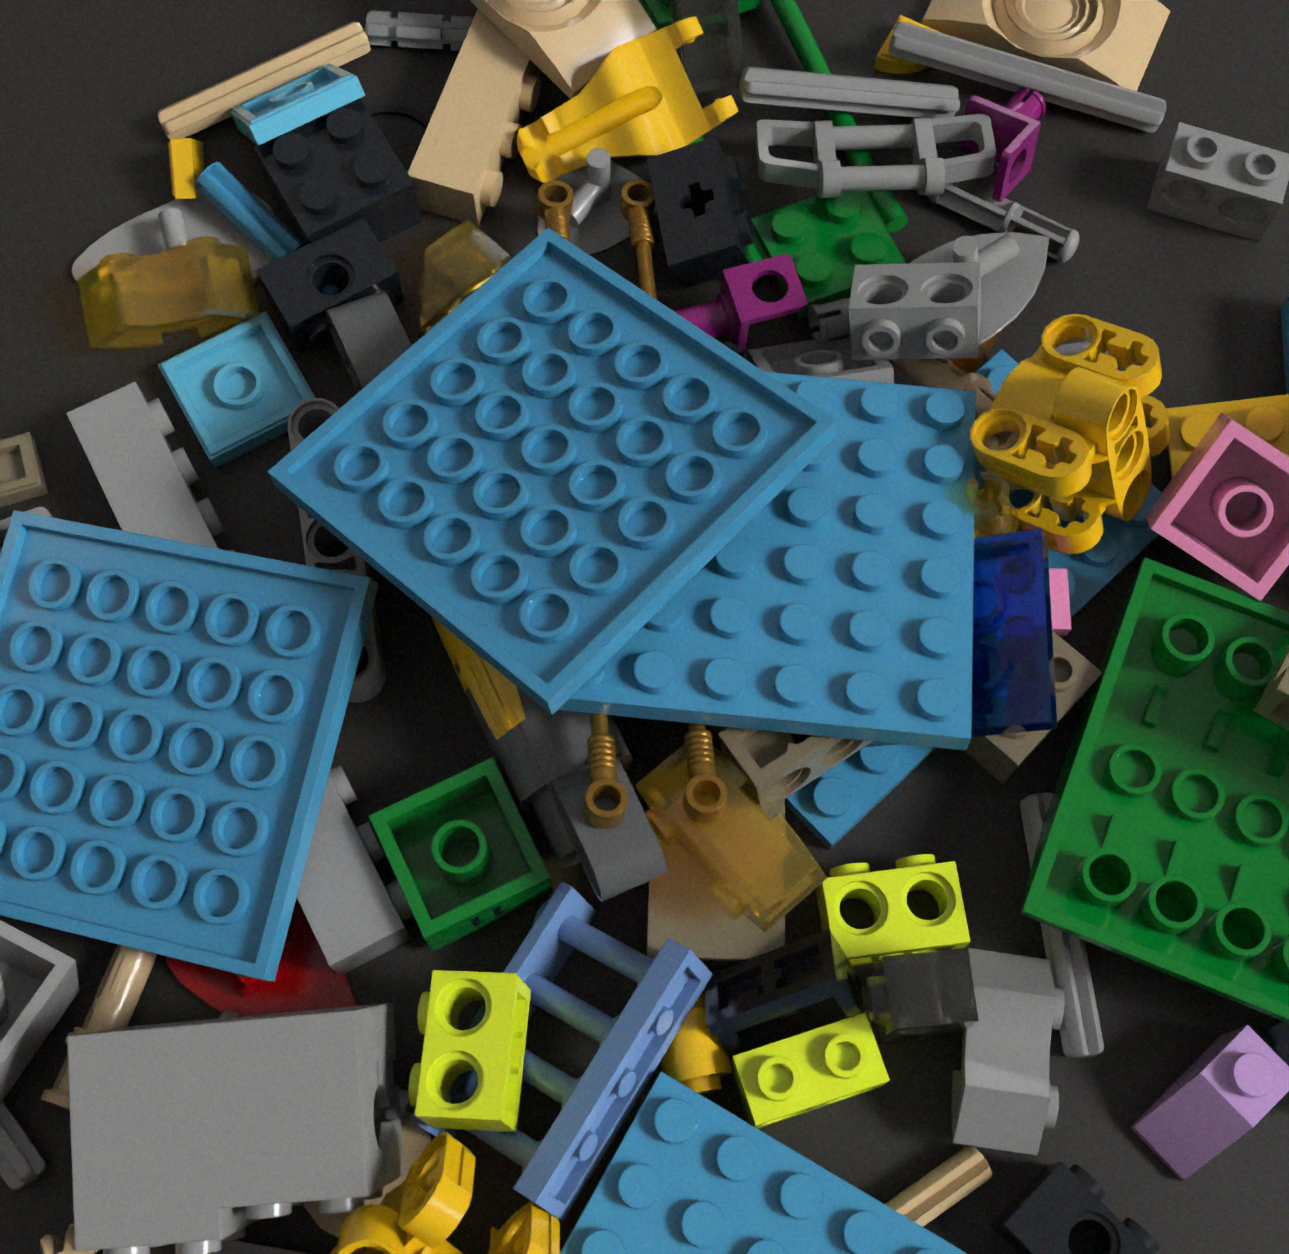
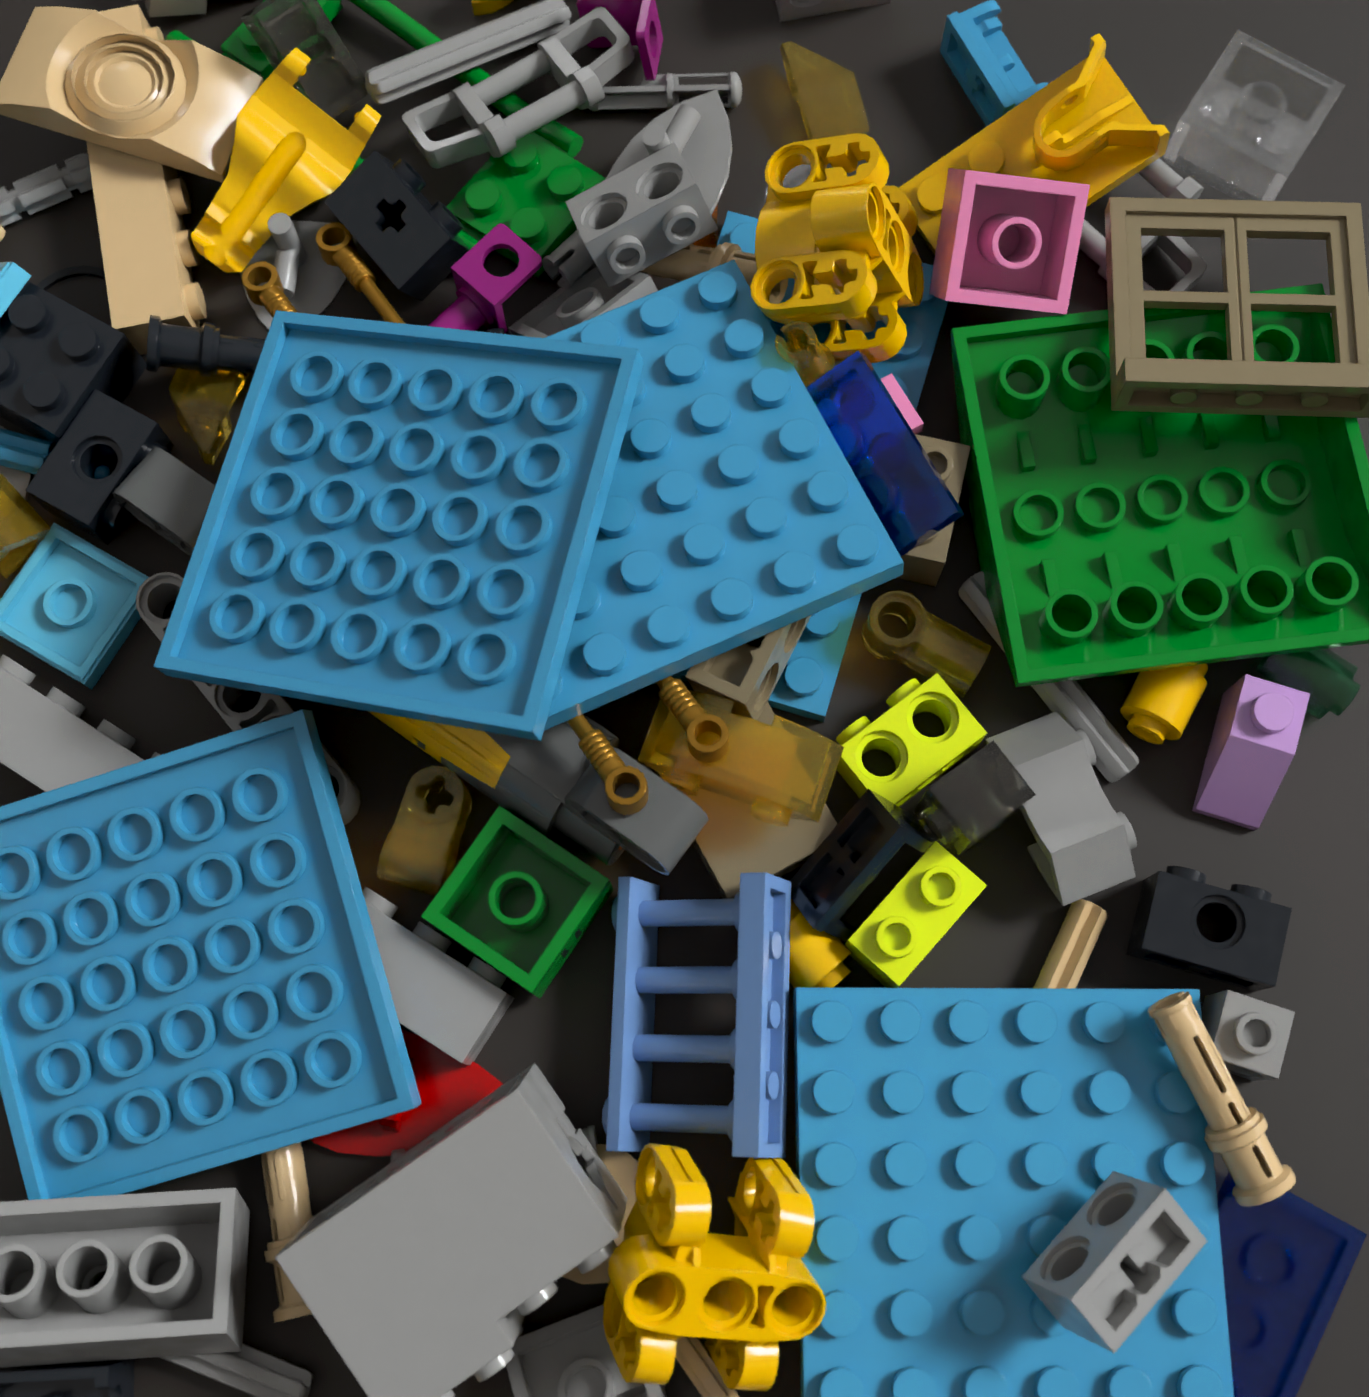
camera: 25 degrees left, 5 degrees up
(415, 751) = (422, 844): none -> clear yellow piece
(467, 227) = (200, 349): none -> black pin
(491, 1049) = (644, 1053): neon yellow brick -> none
(965, 833) = (930, 644): none -> clear yellow piece
(1149, 292) = (825, 93): none -> clear yellow slope
(1157, 1008) = (1164, 702): none -> yellow brick

